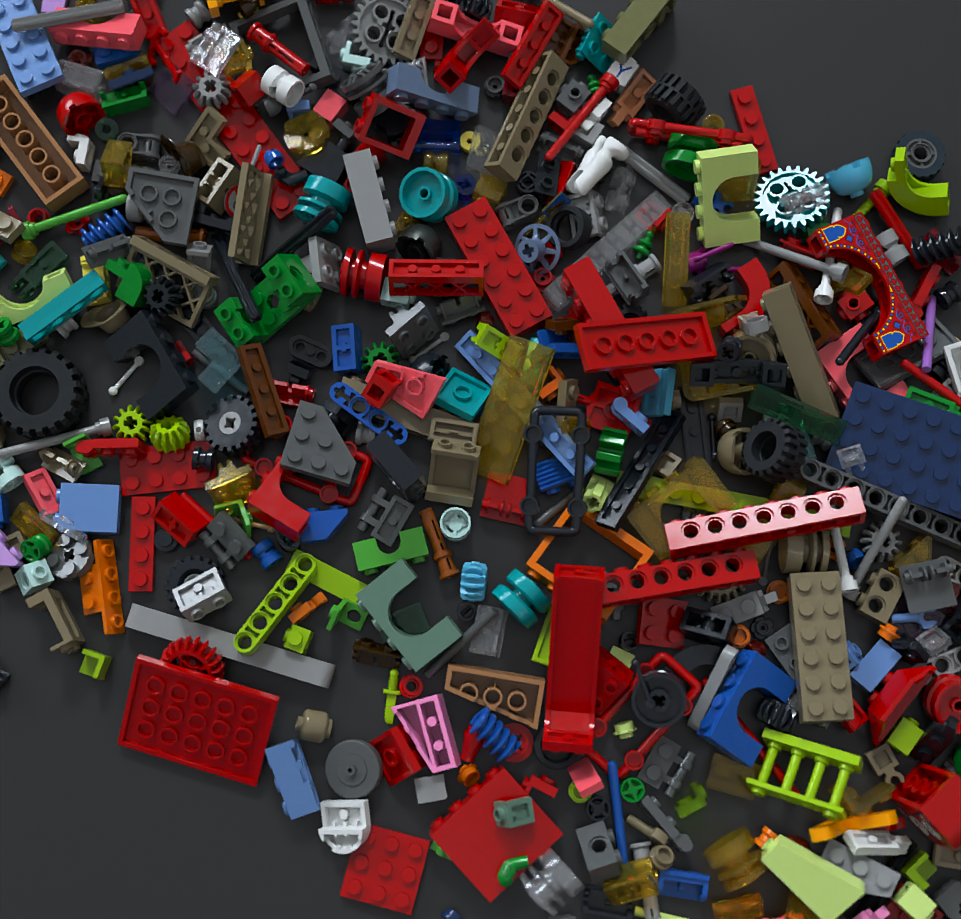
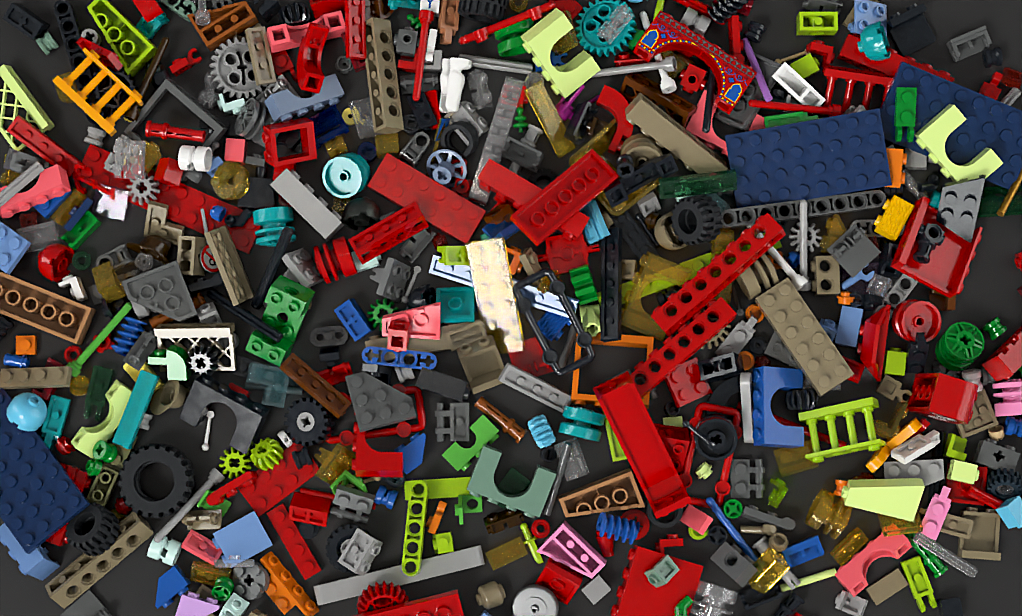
camera: 30 degrees left, 5 degrees up
(358, 691) = (506, 553): none -> clear yellow plate
(455, 524) = (505, 398): light aqua wheel -> none
(468, 775) = (616, 565): orange plate -> none
(494, 530) = (534, 387): none -> light grey plate
(635, 421) = (588, 254): medium blue plate -> none
(753, 323) = (630, 137): light grey piece -> none
(850, 457) = (752, 192): clear tile -> none
(856, 281) = (685, 62): clear yellow tile -> none

